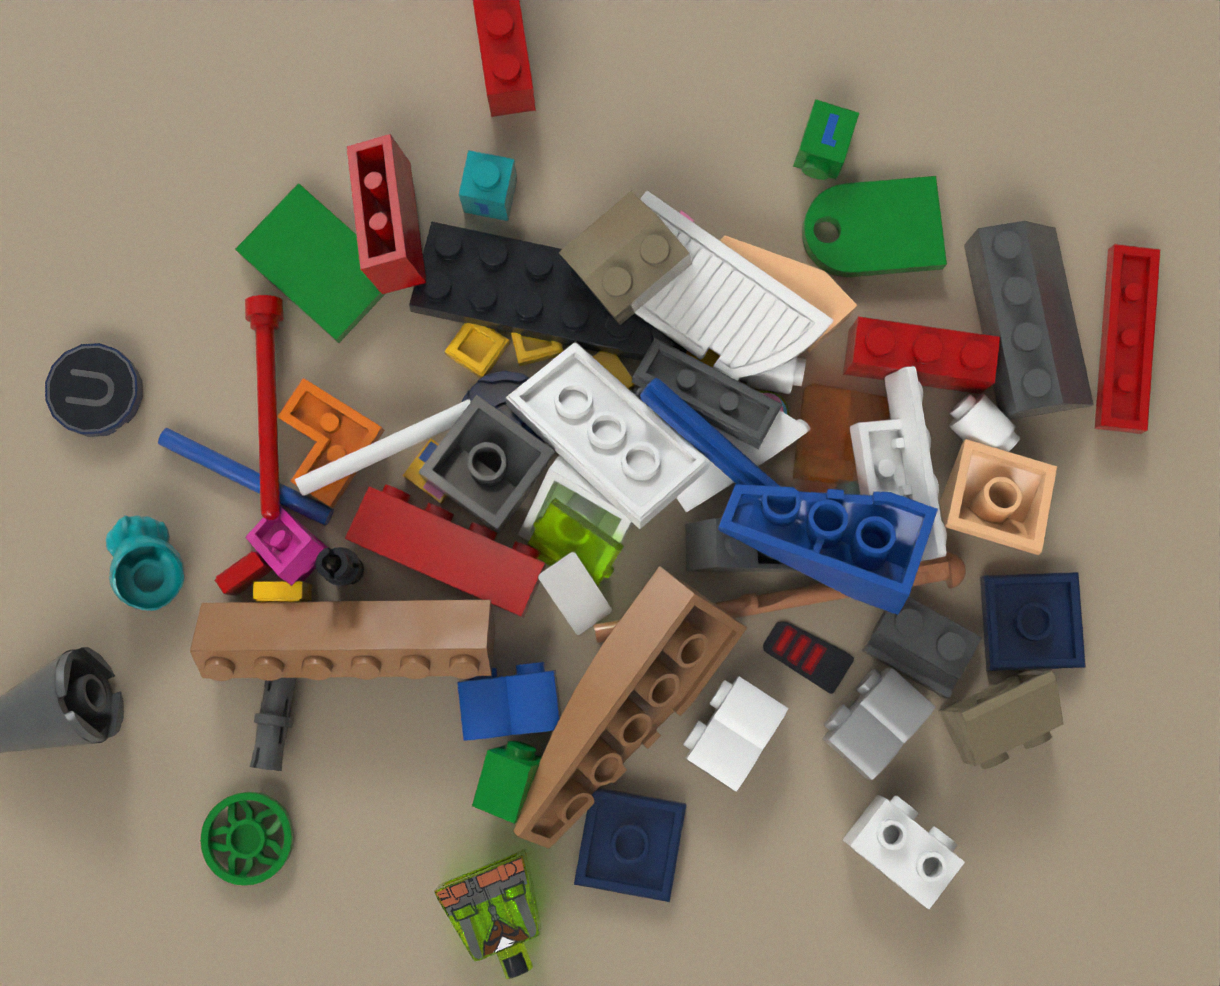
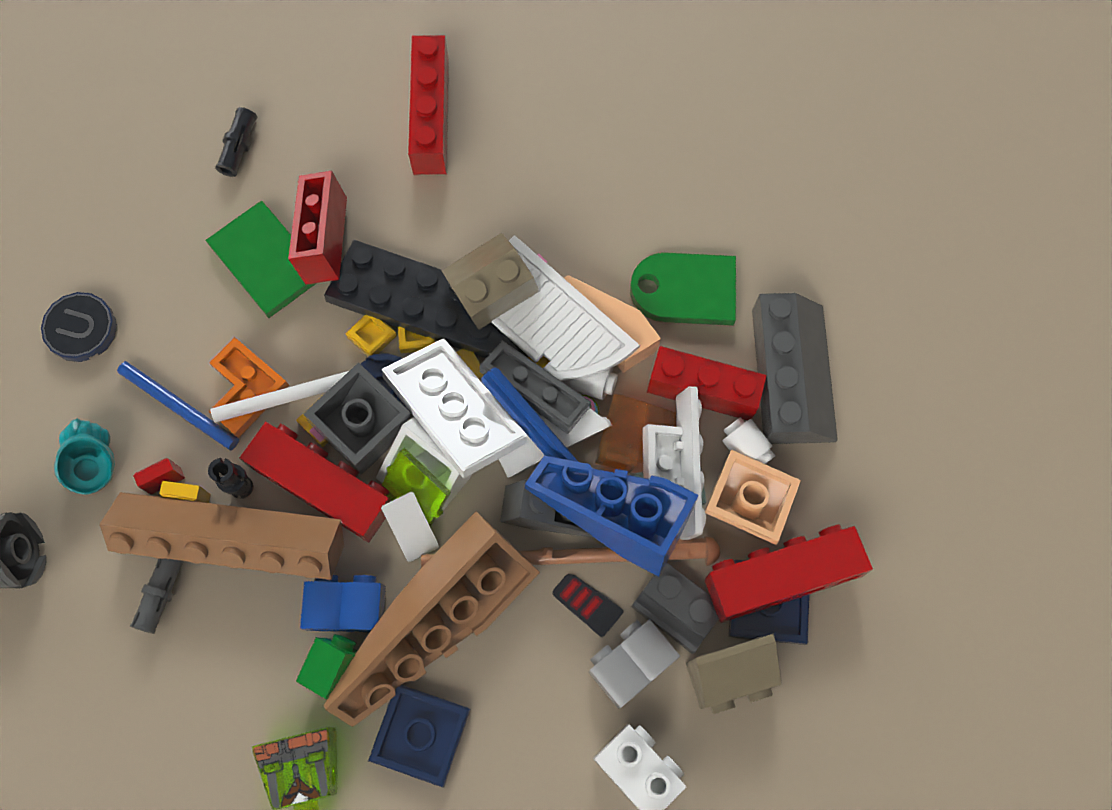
camera: 10 degrees right, 10 degrees down
(246, 104) = (229, 159): none -> black pin
(247, 838) = (116, 685): green wheel -> none
(264, 315) = (215, 289): red piece -> none
(286, 546) = (193, 458): dark pink slope -> none
(488, 185) = (399, 219): teal brick -> none
(735, 732) = (517, 655): white brick -> none
(825, 140) = (655, 219): green brick -> none
(1055, 587) = (787, 573): none -> red brick
(1127, 339) = (868, 395): red plate -> none

